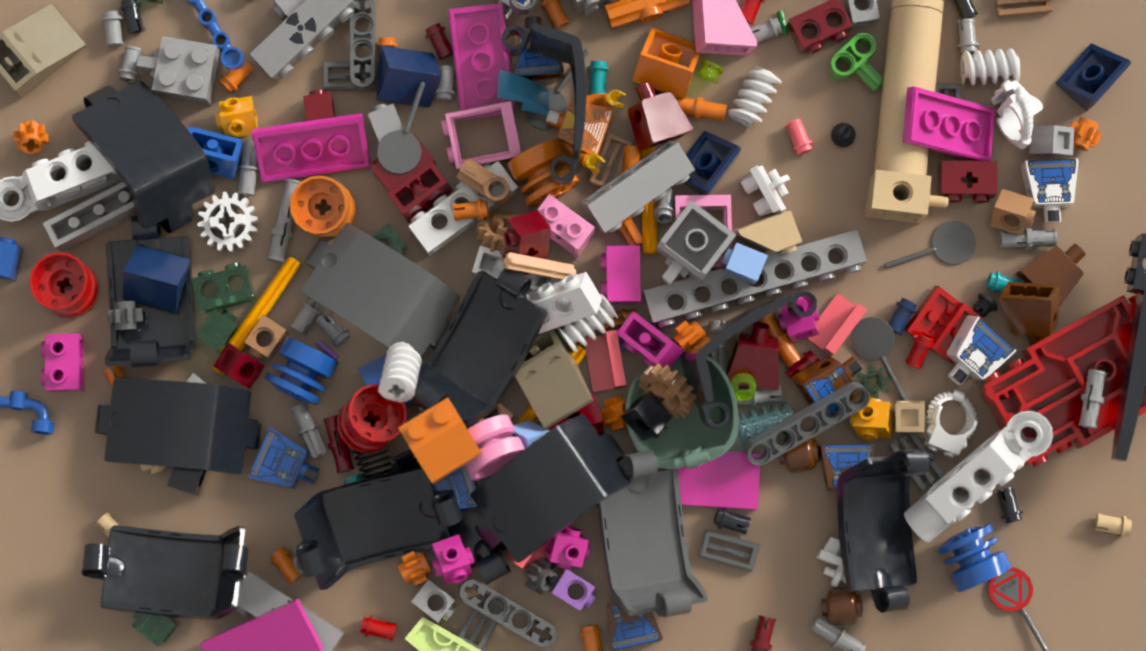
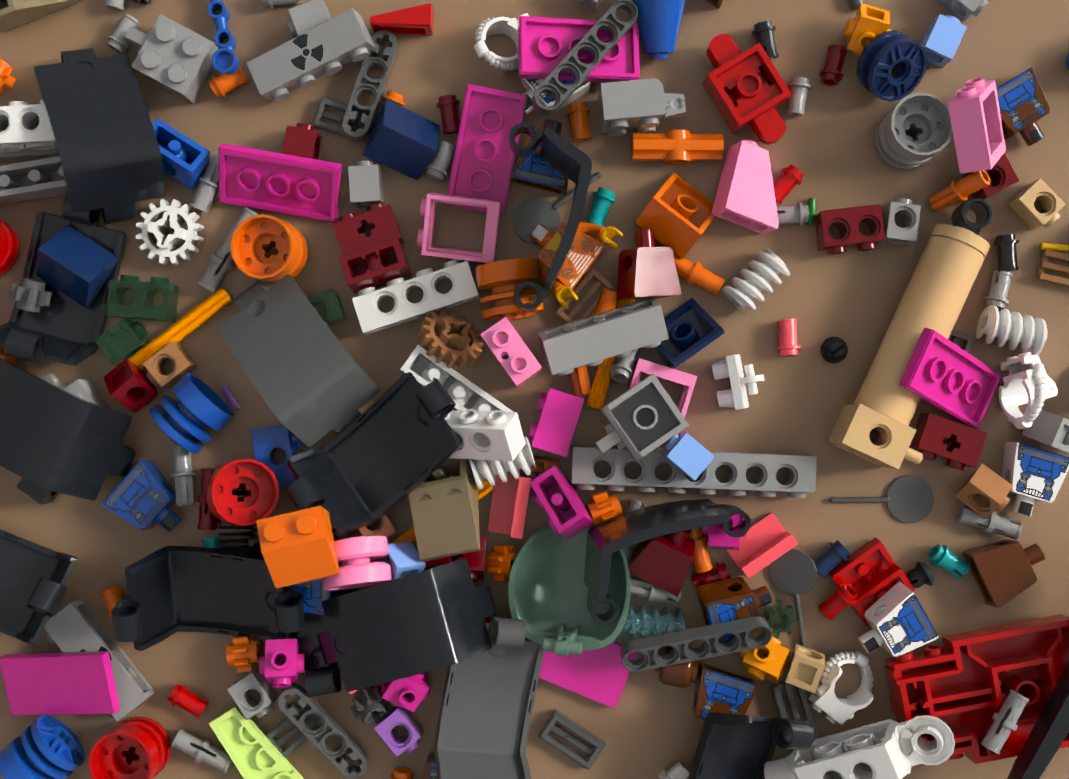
camera: 20 degrees right, 5 degrees up
(237, 117) = (213, 125): light orange brick -> none
(306, 316) = (216, 358): light grey axle -> none
(333, 329) = (243, 384): light grey pin -> none
(399, 149) = (368, 215): dark grey piece -> none
(400, 373) = (282, 457): white piece -> none
(471, 210) = (420, 304): orange pin -> none
(483, 181) = (443, 277): medium nougat piece -> none
(520, 89) = (514, 192): dark azure slope -> none
(527, 236) = (464, 361): dark red brick -> none
(538, 266) = (468, 390): light nougat axle -> none
(647, 416) = (531, 582): black brick -> none
(669, 389) = (562, 563): medium nougat gear -> none
(710, 71) = (719, 238): clear neon green bush -> none
(731, 520) = (584, 711): black pin -> none
(744, 378) = (645, 574): clear neon green bush -> none
(772, 233) = (727, 429): tan slope -> none
(857, 62) = (875, 279): bright green beam -> none
(1031, 309) = (970, 599): reddish brown torso -> none

